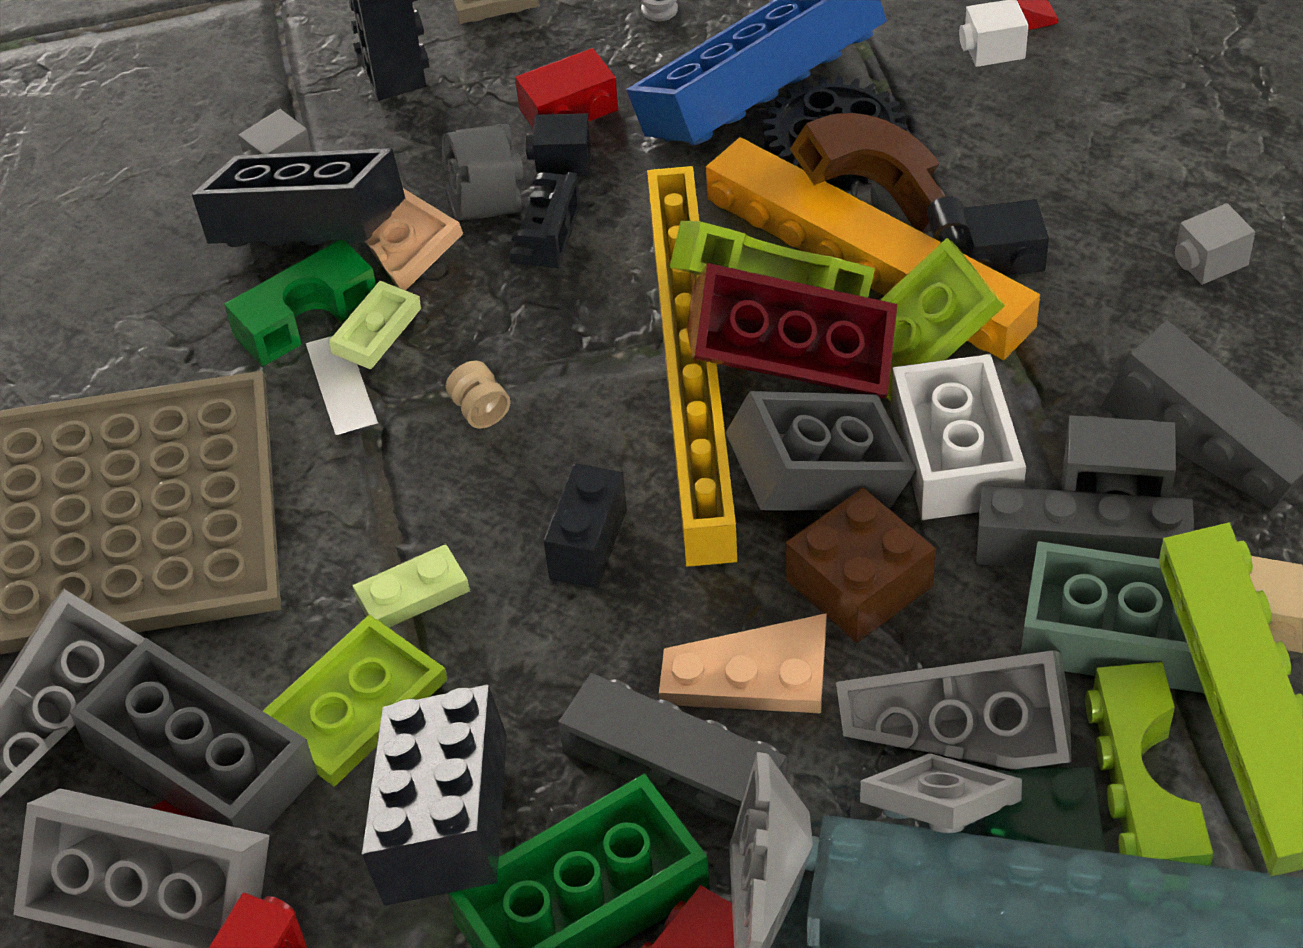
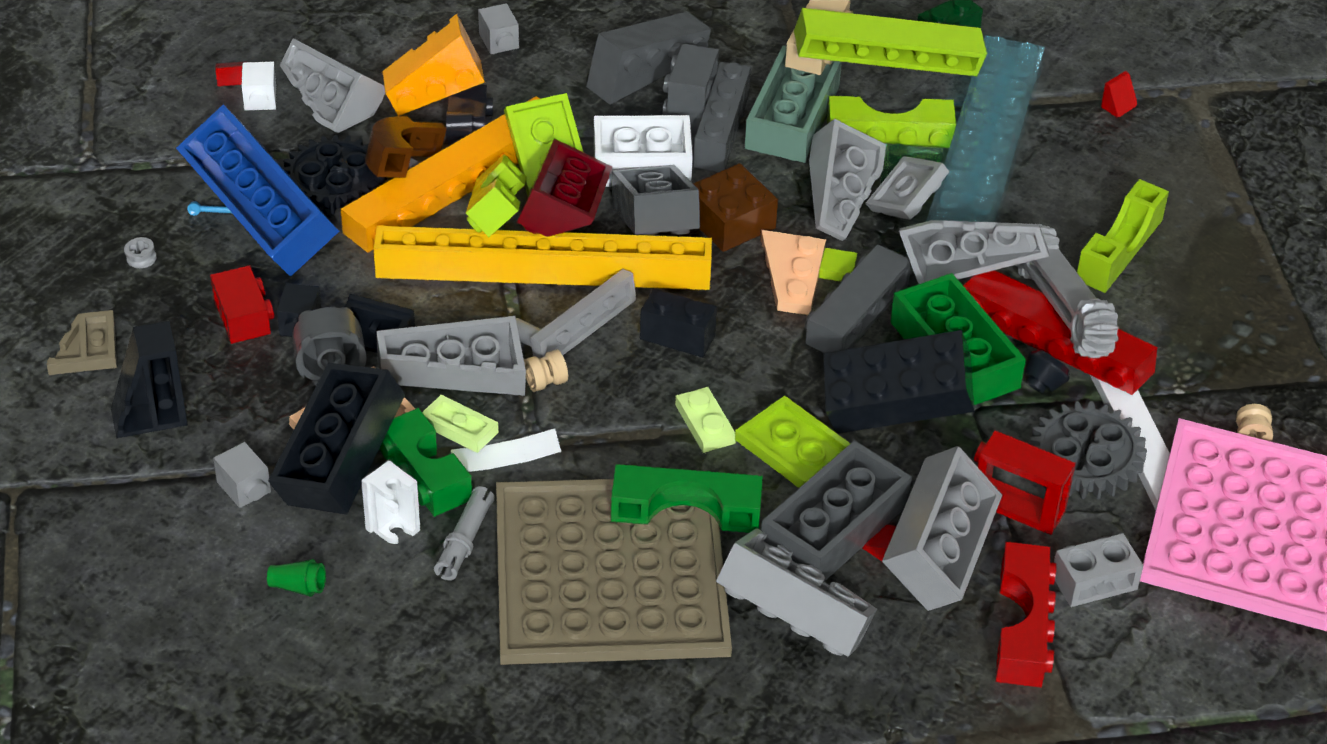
camera: 90 degrees left, 5 degrees down
(117, 226) = (299, 577): none -> green cone
(168, 356) = (459, 542): none -> light grey pin
(202, 607) = (645, 491): none -> green arch
(210, 265) = (390, 502): none -> white hinge
(480, 298) = (456, 356): none -> light grey wedge
(582, 419) = (581, 318): none -> light grey piece
(773, 723) = (836, 264): none -> lime tile
(1014, 106) = (330, 88): none -> light grey wedge
(1036, 168) = (434, 70): none -> light orange wedge

